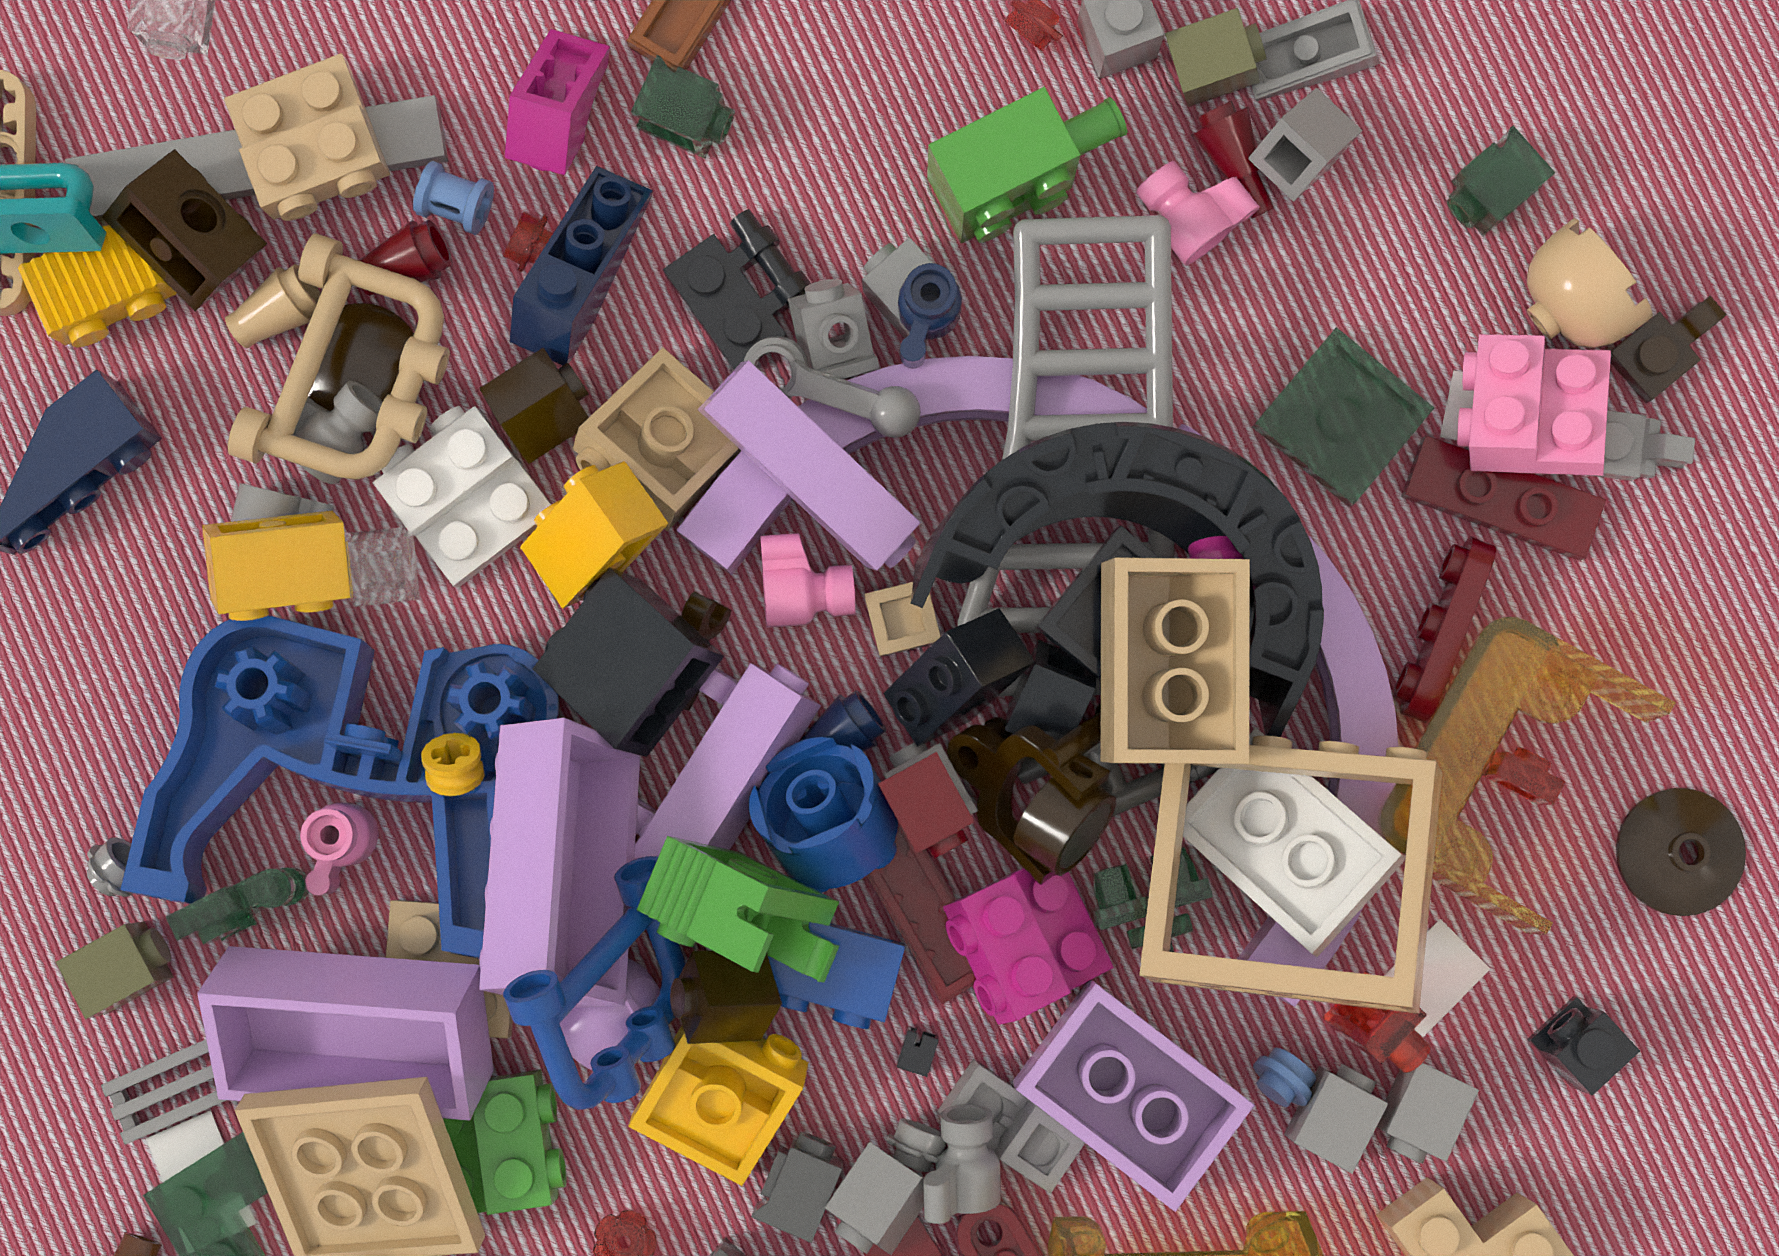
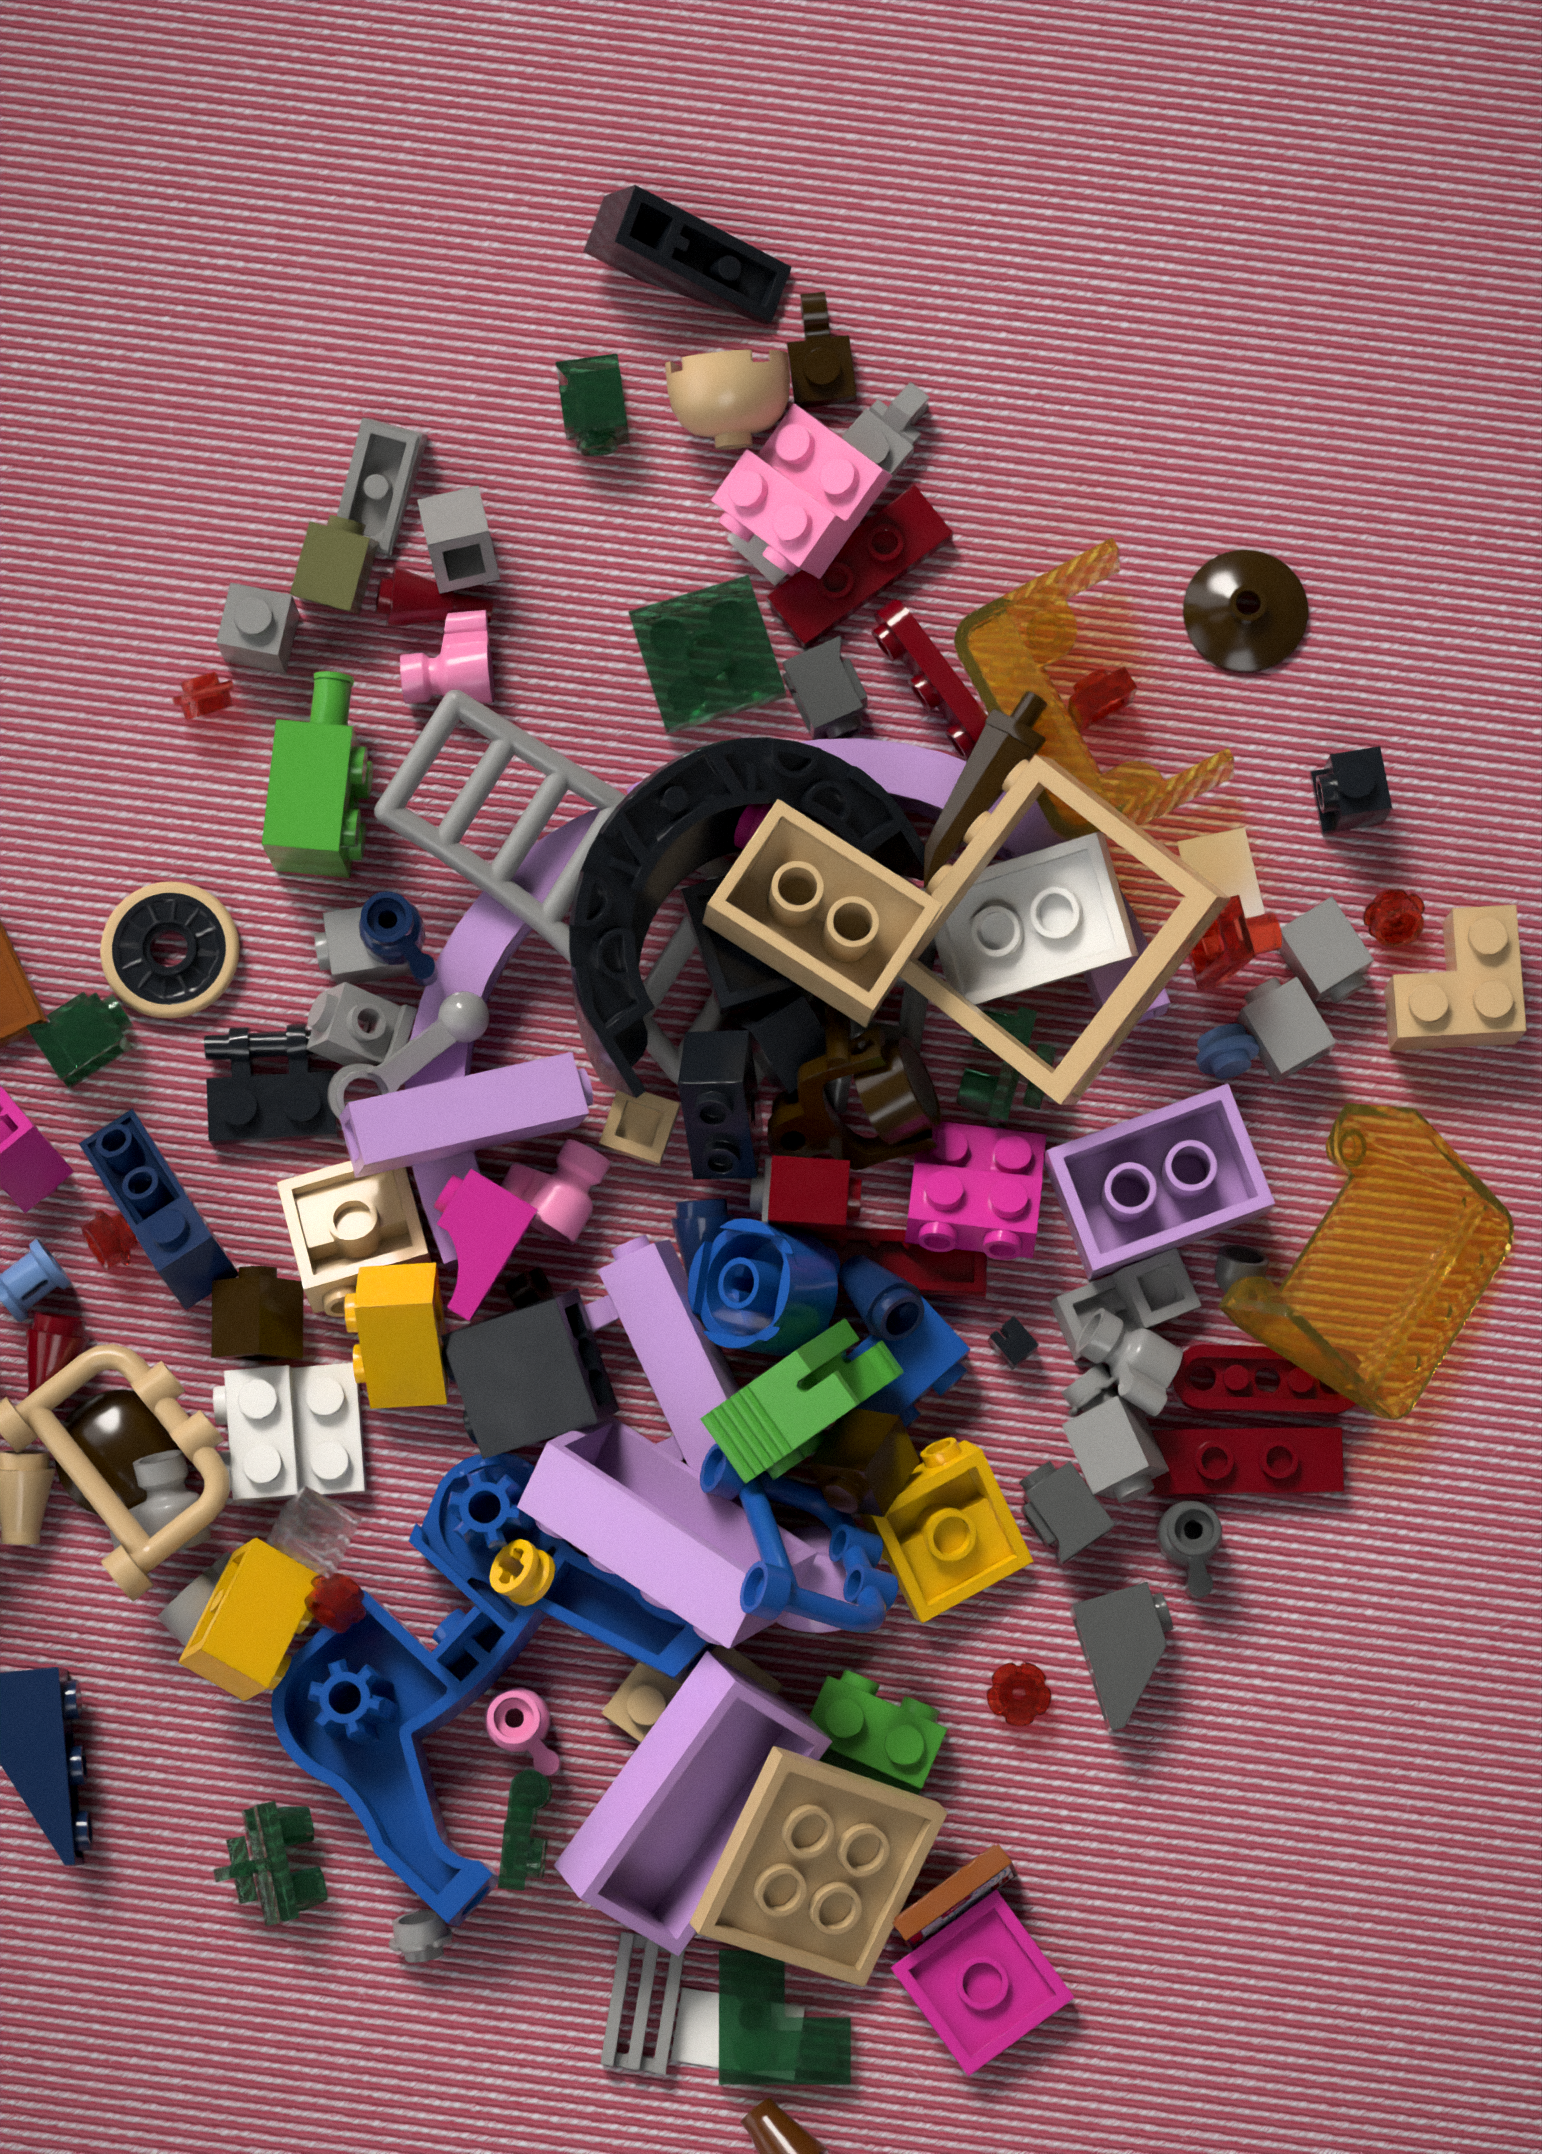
camera: 60 degrees left, 5 degrees down
(81, 733) = (279, 1891): none -> clear green hips
(116, 968) = (509, 1984): olive brick -> none
(332, 624) = (336, 1602): none -> clear red plate
(721, 545) = (485, 1229): none -> dark pink arch
(795, 96) = (178, 988): none -> black wheel
(878, 921) = (883, 1299): none -> dark blue cone
(1105, 1204) = (1237, 1262): none -> dark grey hinge
(1376, 539) = (826, 691): none -> dark grey window
(1411, 723) = (998, 750): none -> dark brown bar
(1495, 1152) = (1395, 917): none -> clear red plate
(1679, 176) = (685, 255): none -> black slope

